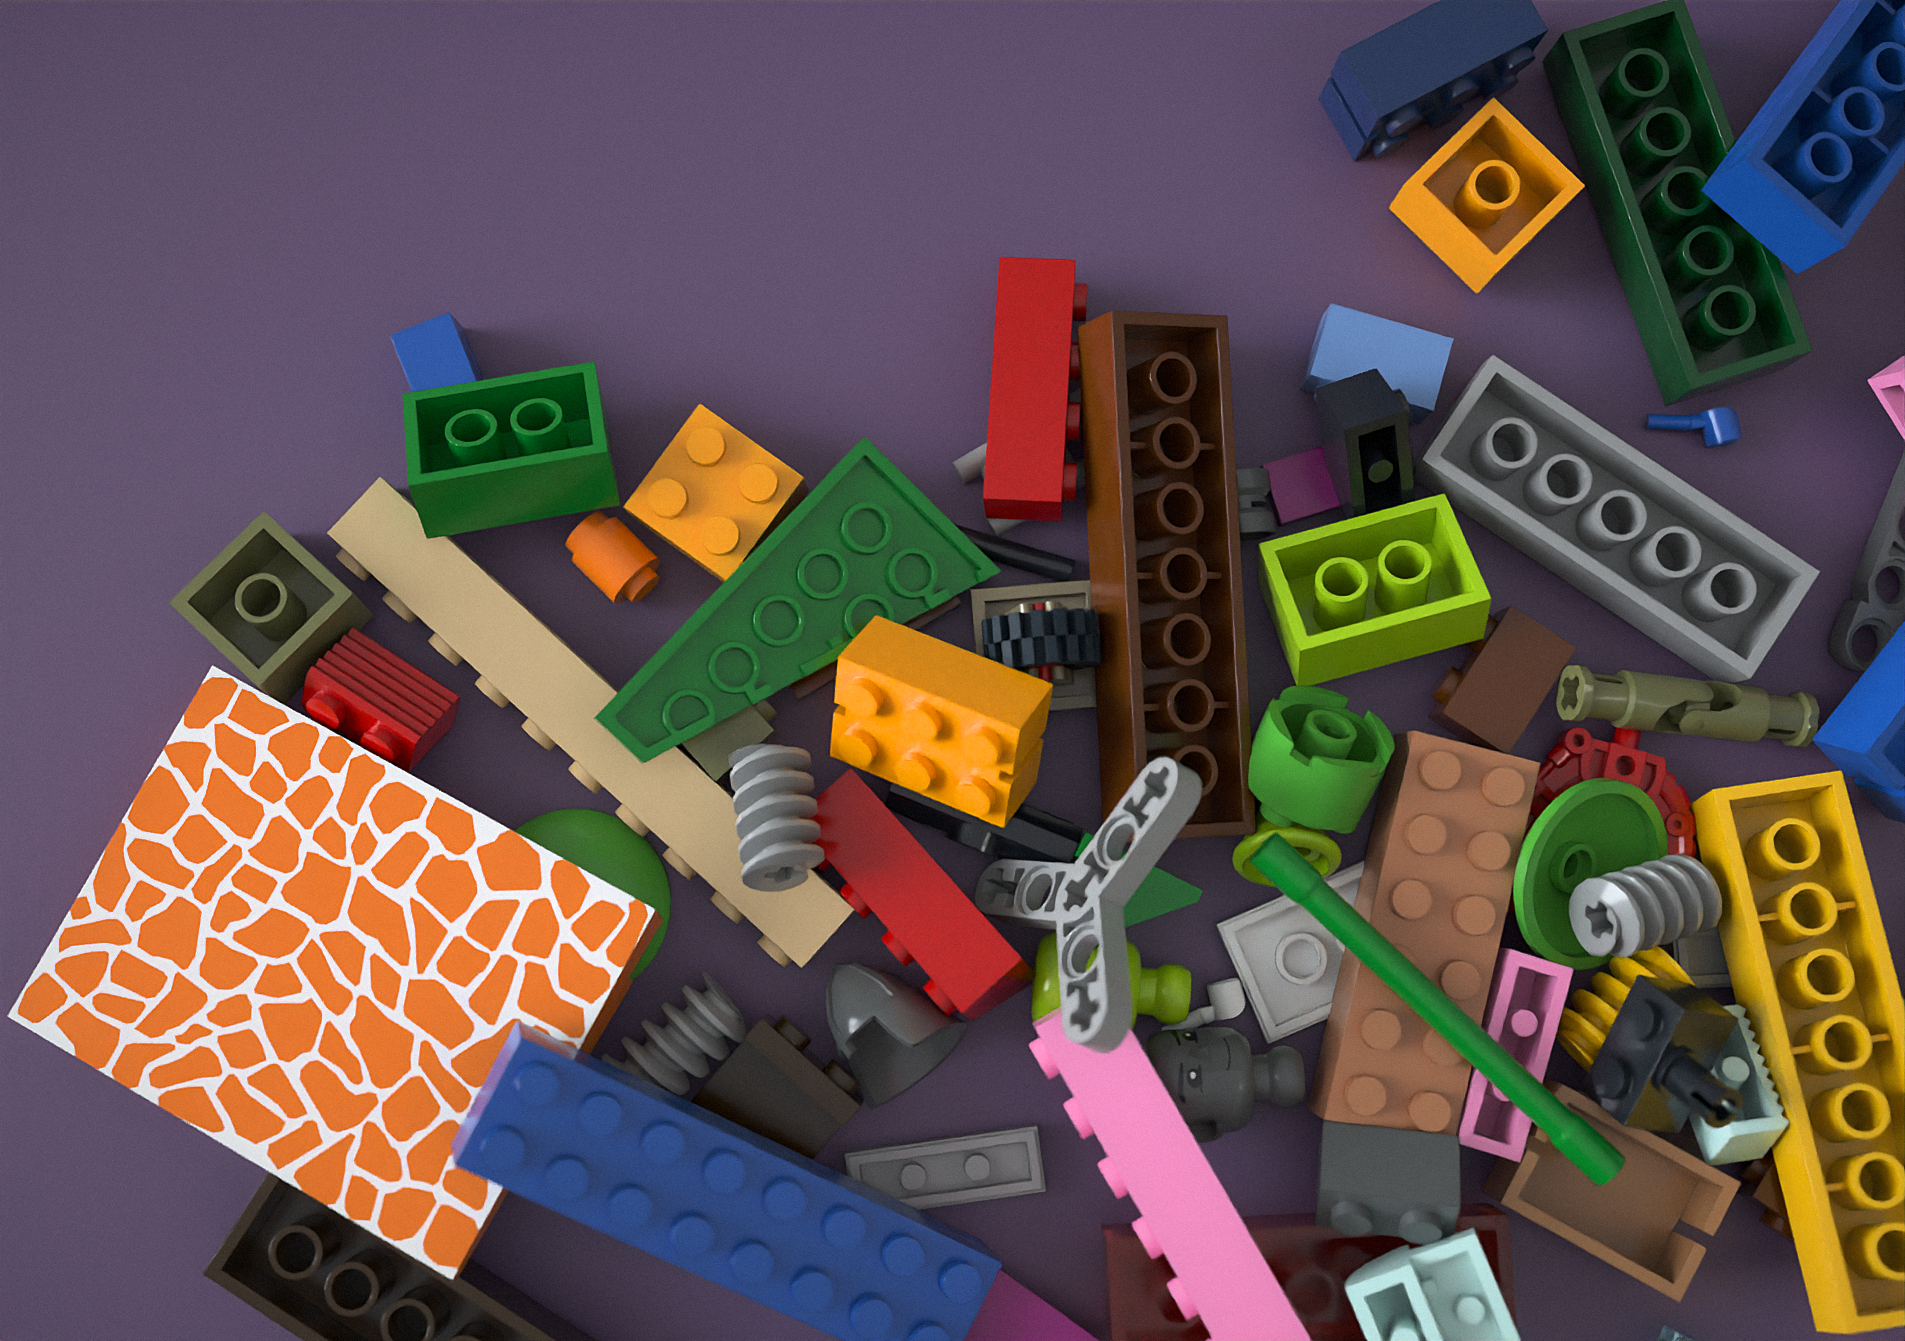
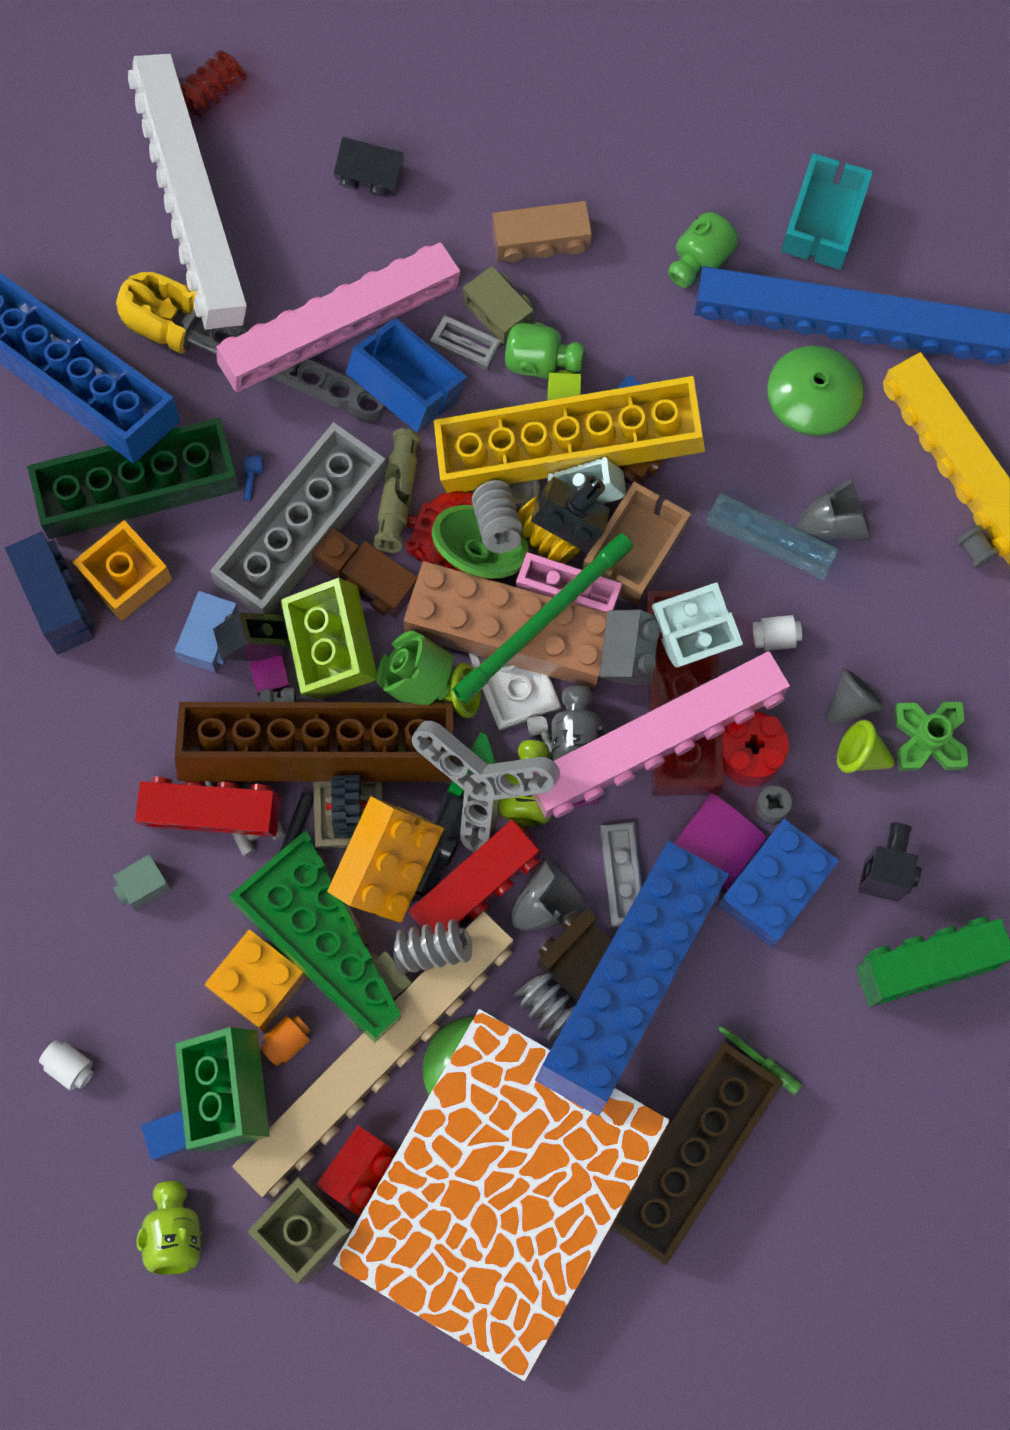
camera: 90 degrees left, 10 degrees down
(268, 383) = (170, 1233): none -> lime piece
(561, 180) = (66, 1065): none -> white brick
(891, 280) = (140, 883): none -> sand green brick
(1547, 591) = (333, 553): none -> reddish brown brick

